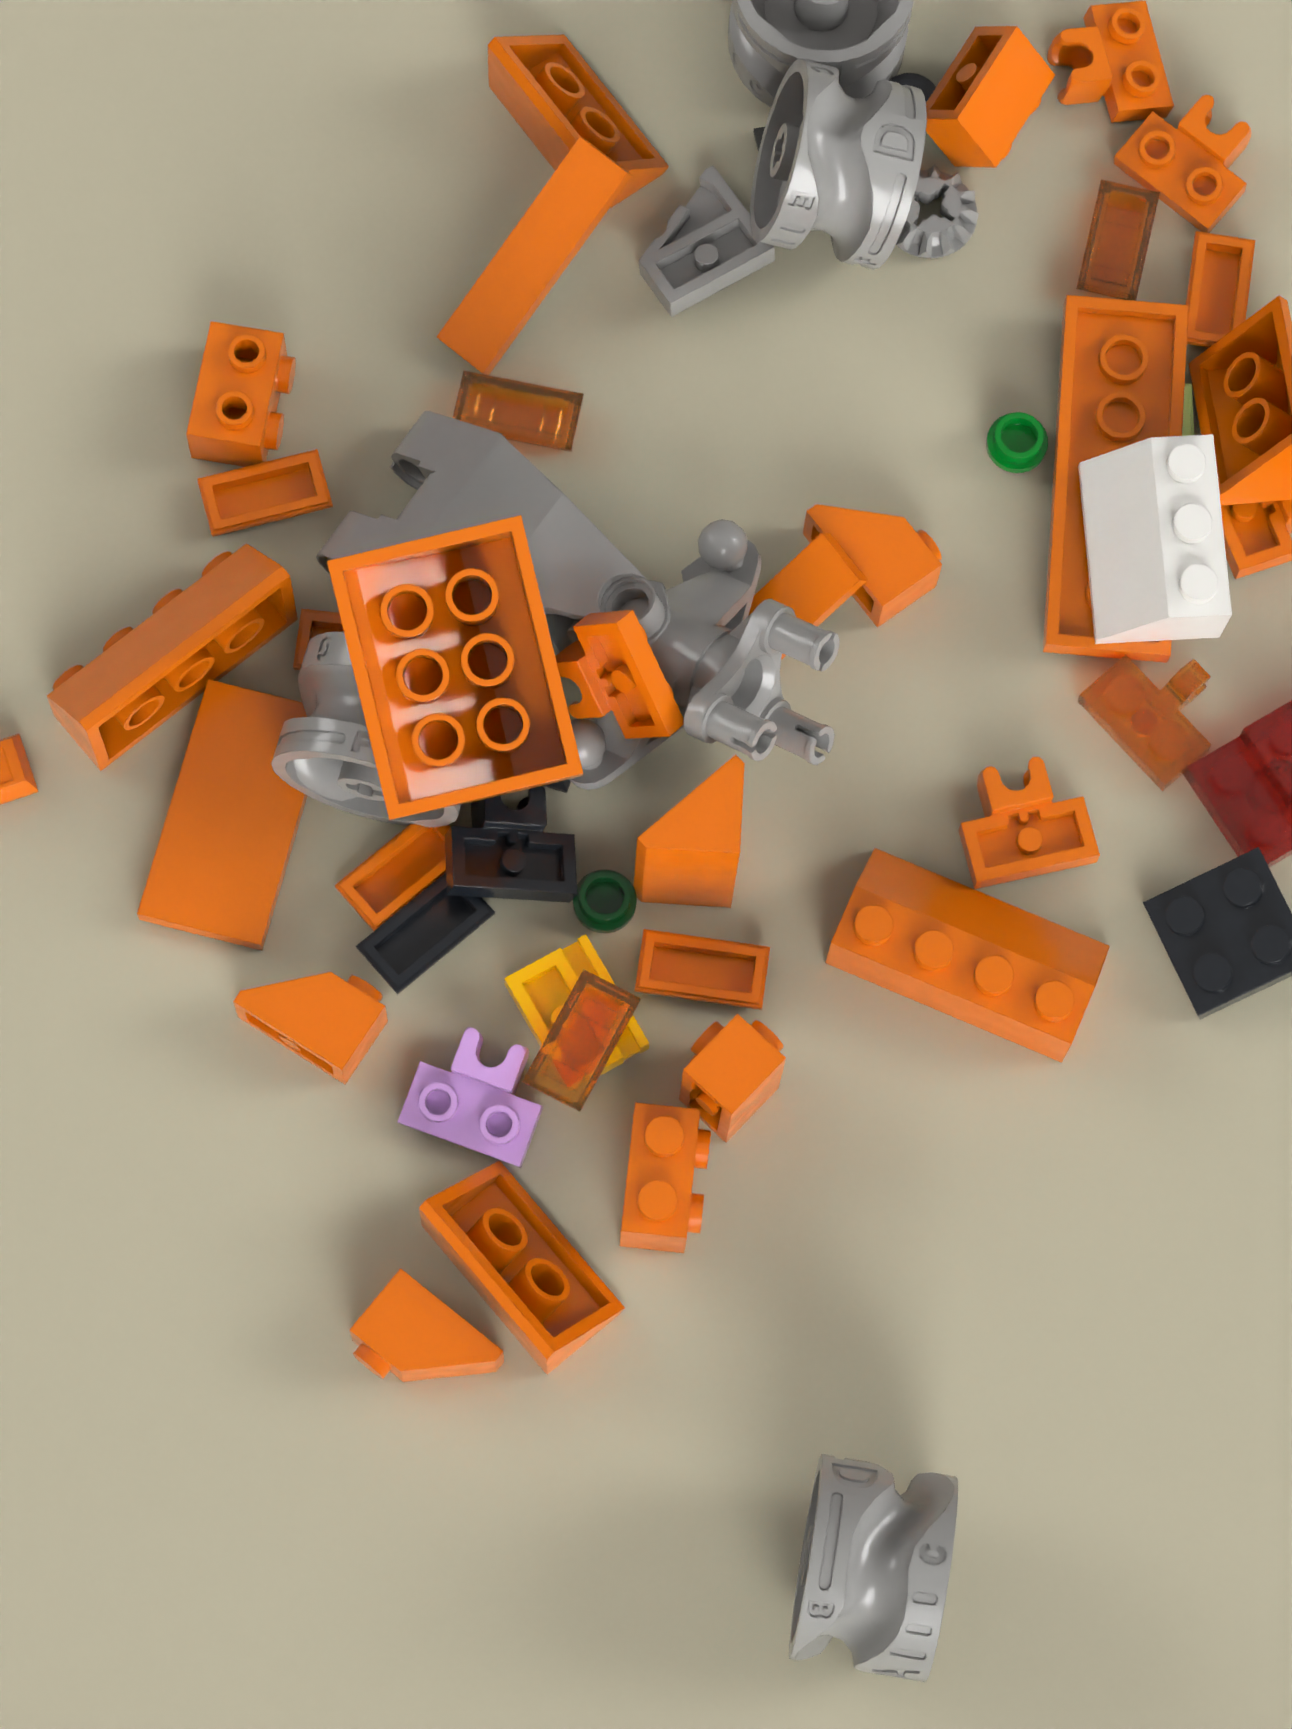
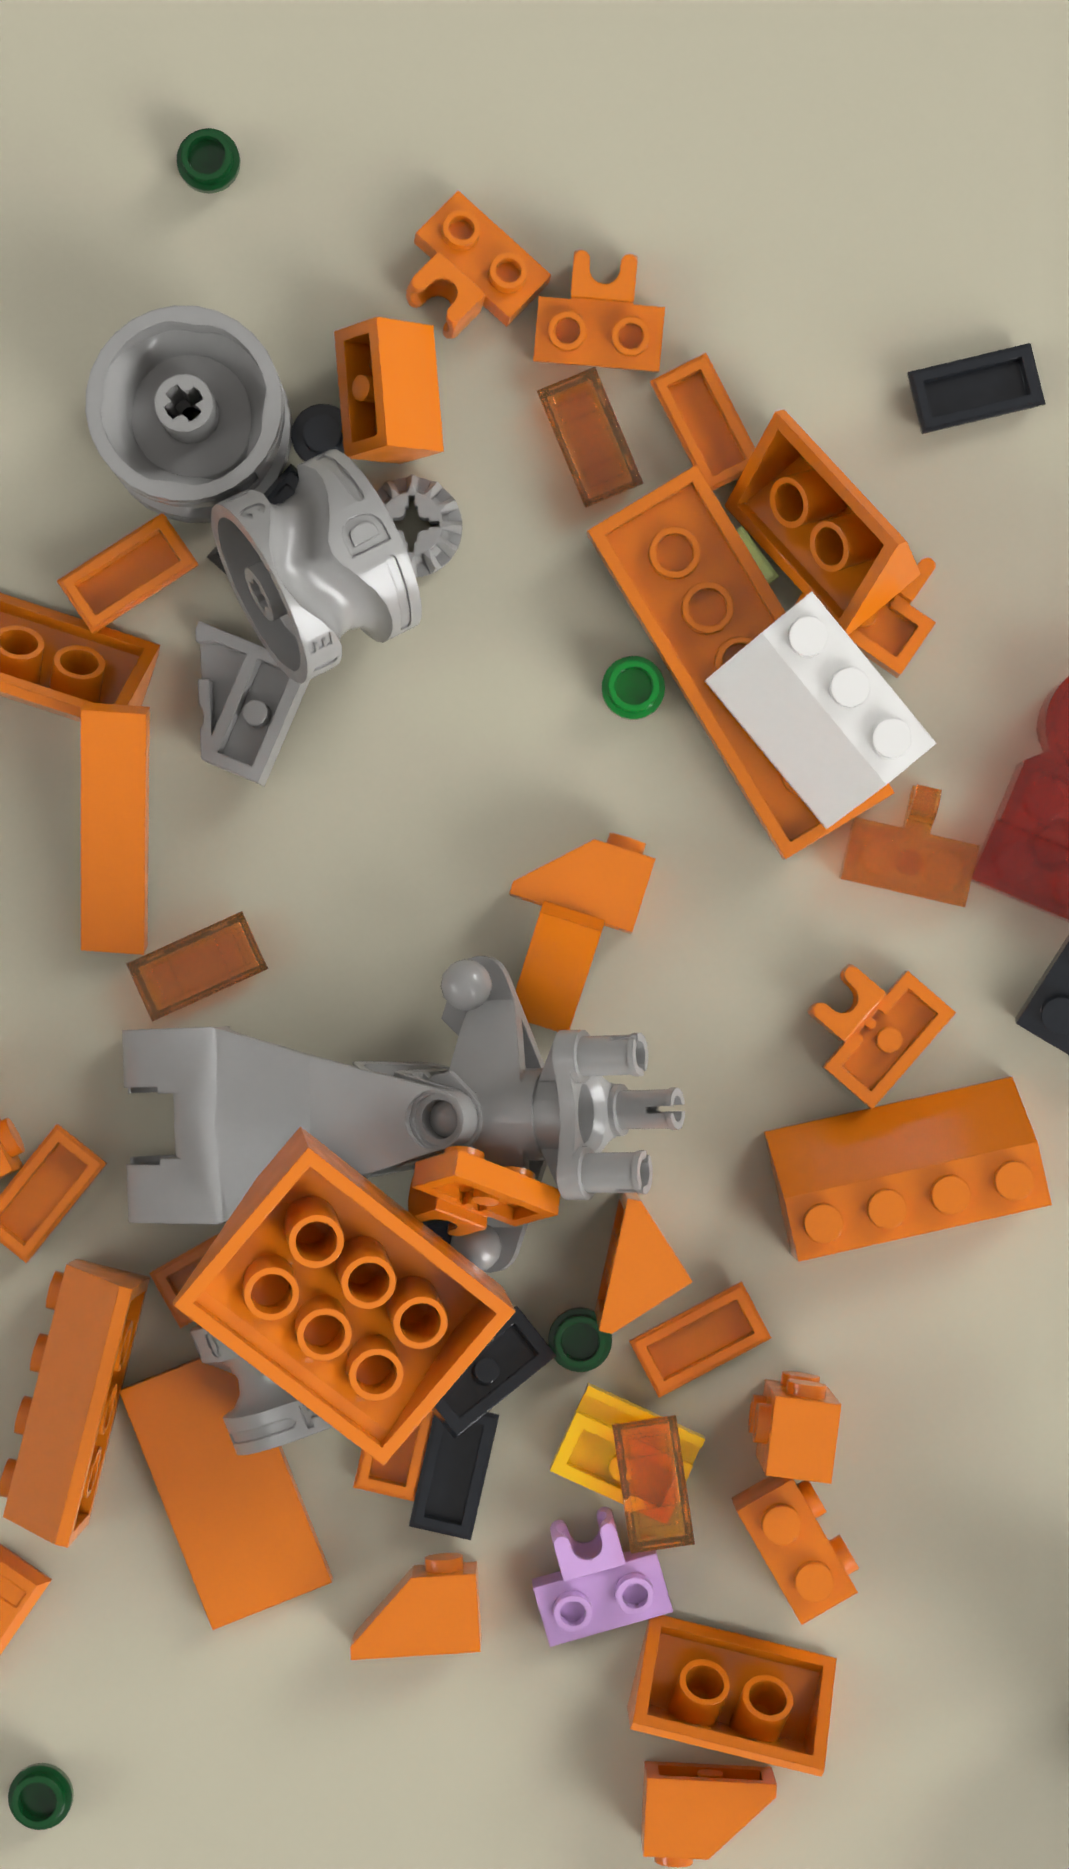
camera: 30 degrees left, 15 degrees up
(684, 95) = (127, 573): none -> orange tile

